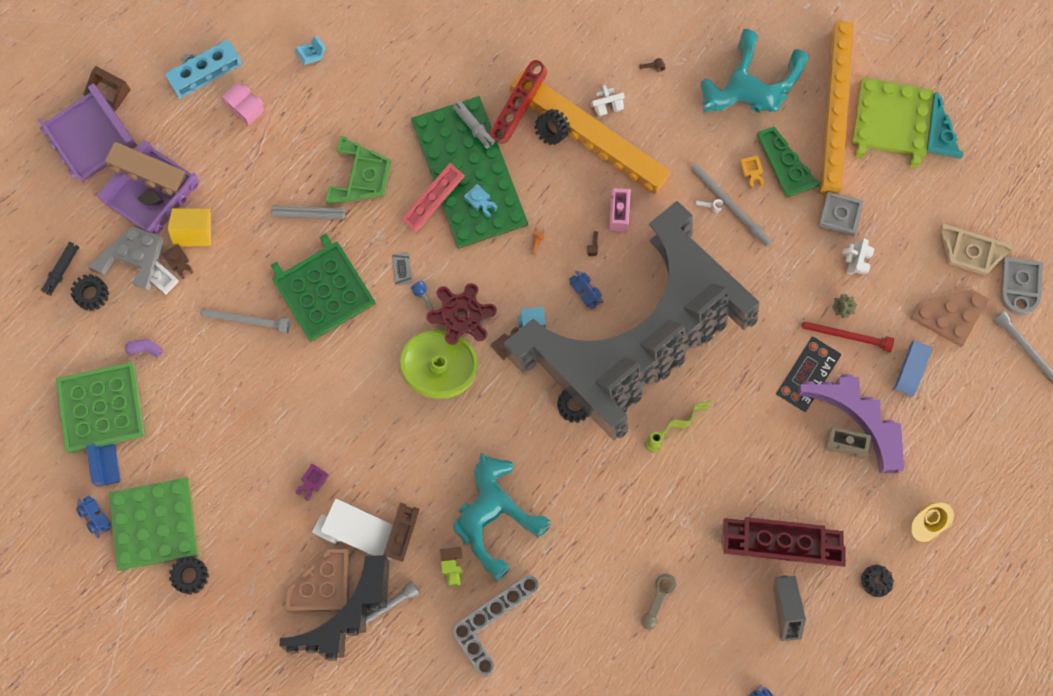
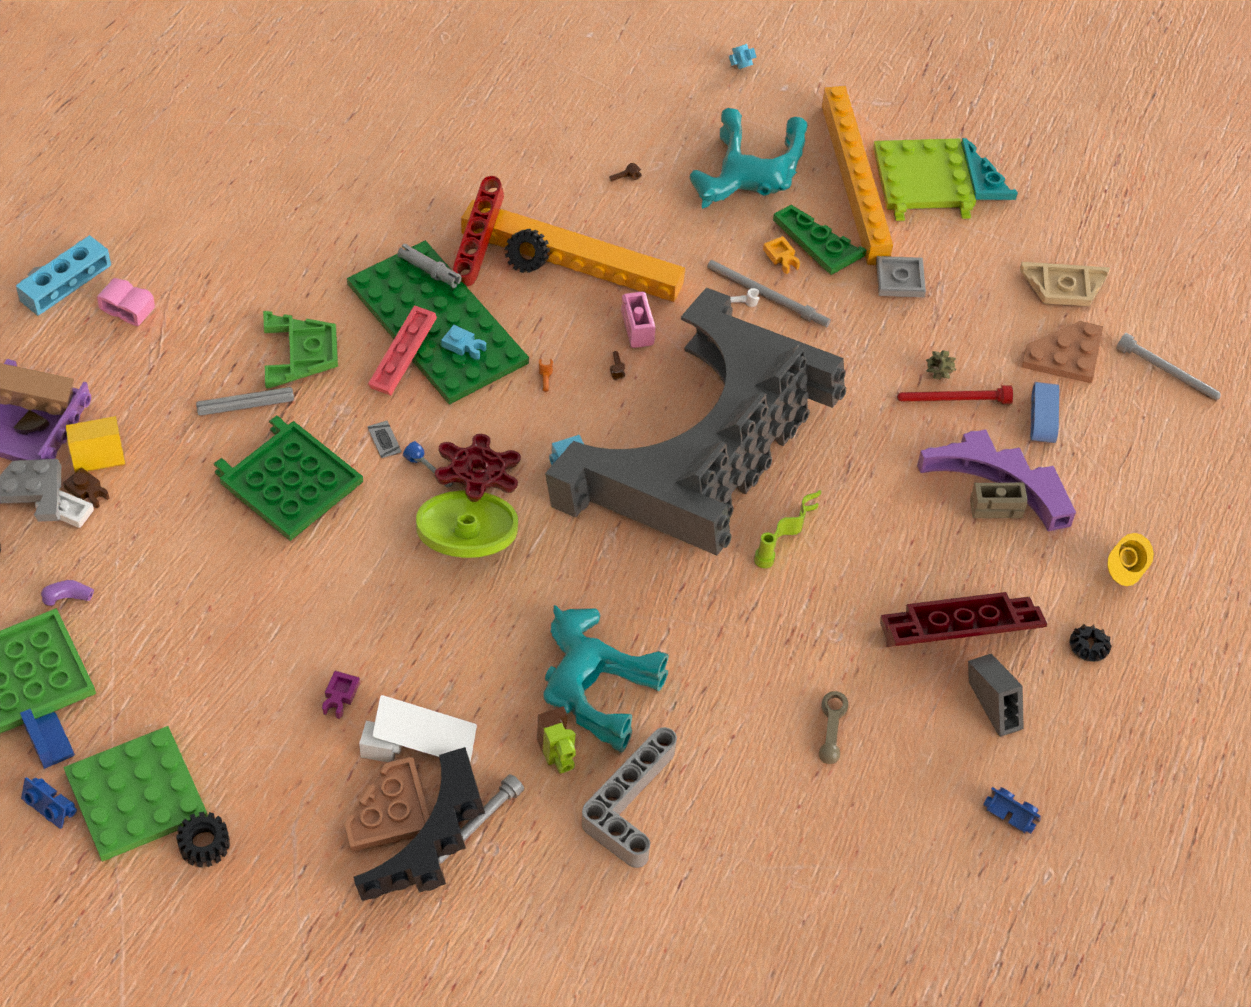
camera: 20 degrees left, 20 degrees down
(282, 324) = (244, 528): light grey piece -> none
(311, 52) = (199, 234): medium azure bracket -> none
(401, 532) = (477, 723): reddish brown plate -> none
(498, 345) = (538, 494): reddish brown plate -> none
(564, 411) = (647, 546): black tyre -> none
(591, 294) = (618, 405): blue hinge -> none
(615, 100) = (582, 213): white hips -> none
(812, 365) = (924, 431): black sticker -> none
(855, 257) = (935, 314): white hips -> none
(1021, 282) = (1133, 304): light grey tile -> none

